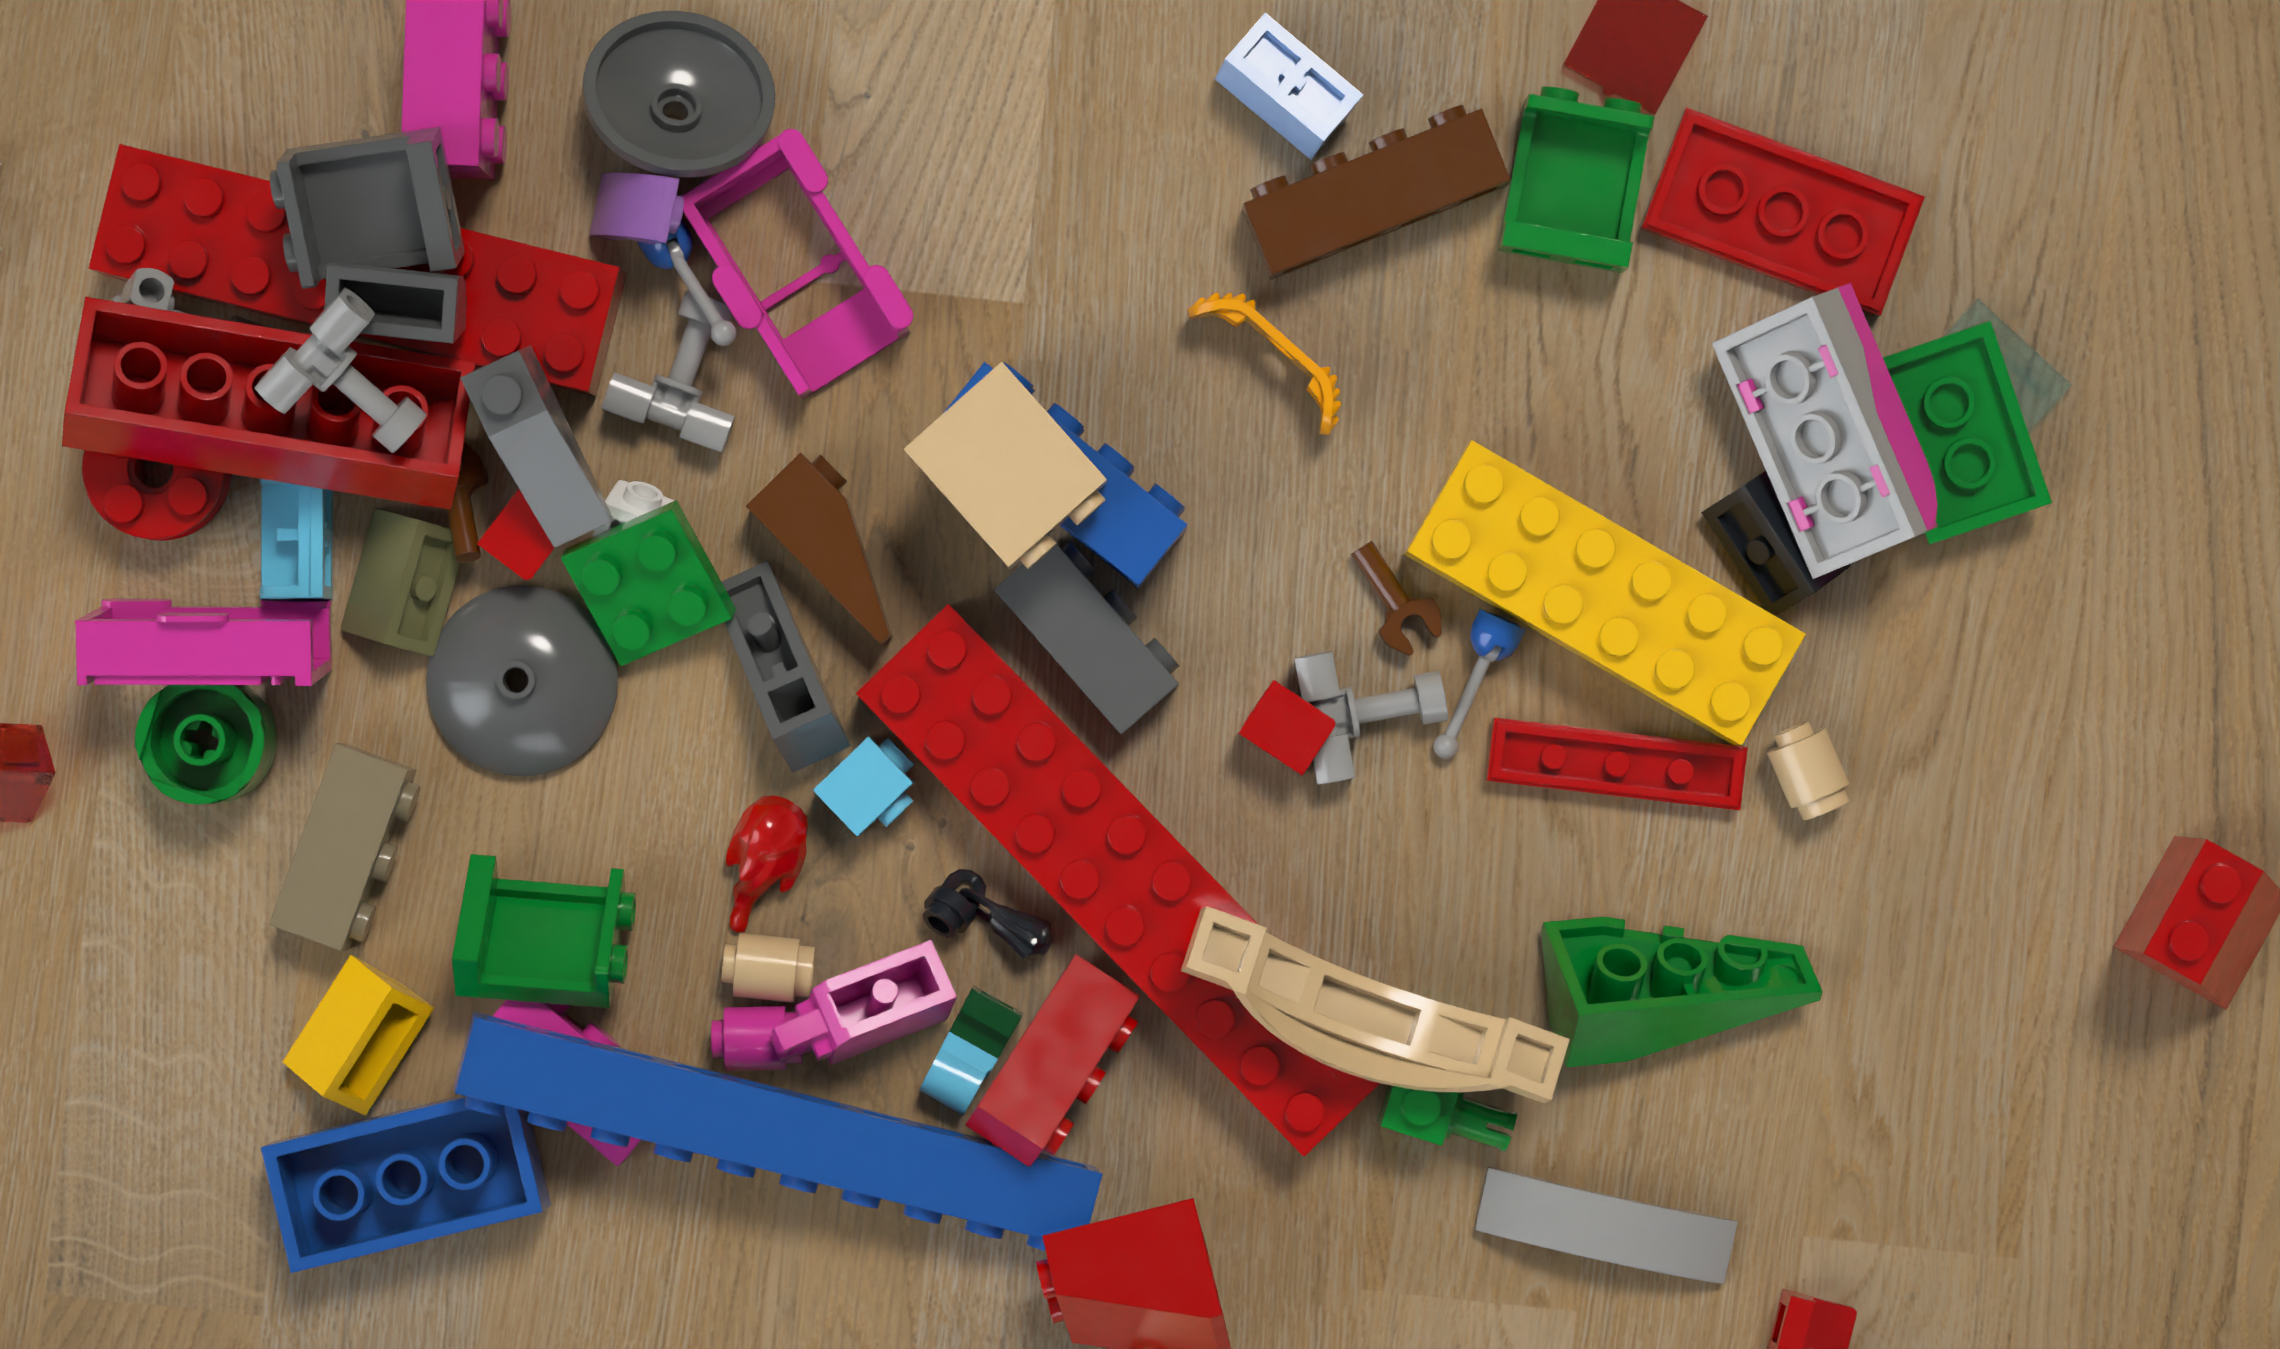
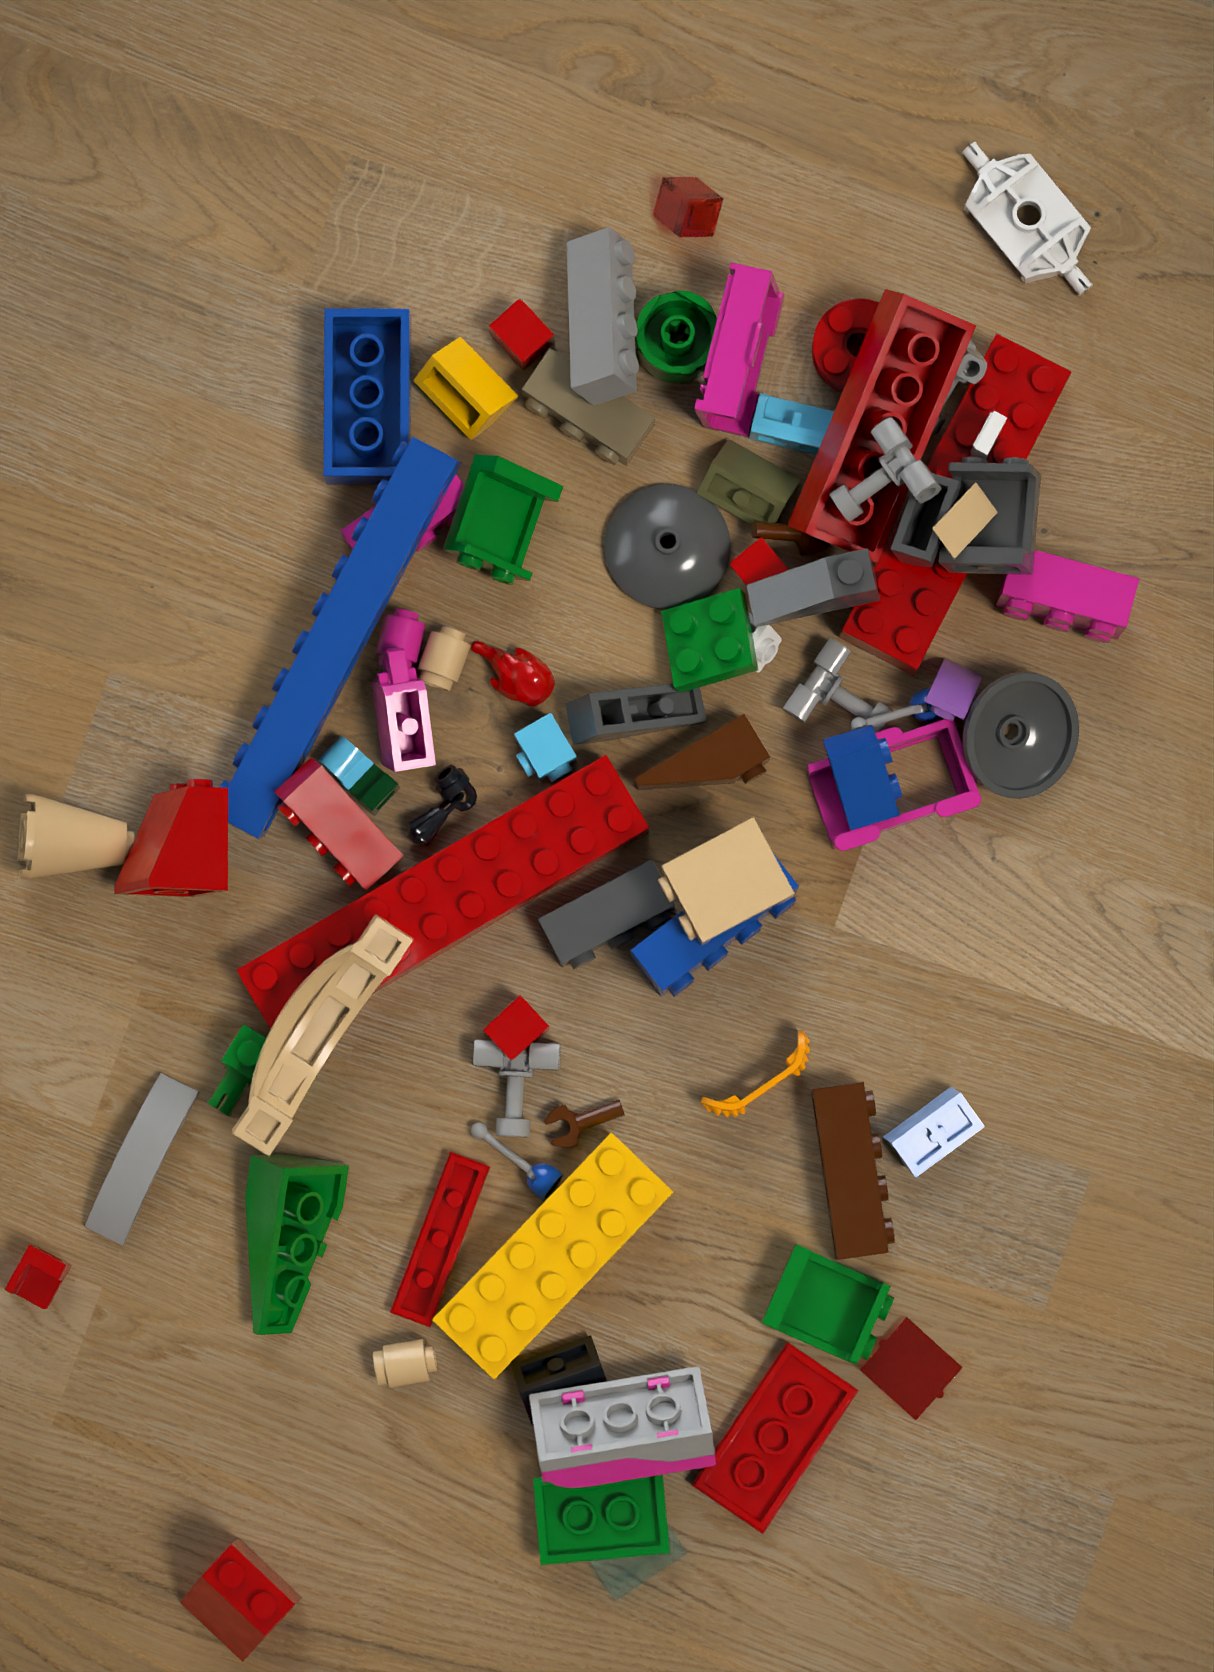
camera: 105 degrees right, 5 degrees down
(203, 858) = (602, 316): none -> light grey brick
(246, 241) = (988, 435): none -> white tile
(257, 971) = (521, 334): none -> red panel
(384, 243) = (964, 520): none -> tan sticker
(798, 309) = (862, 776): none -> blue brick

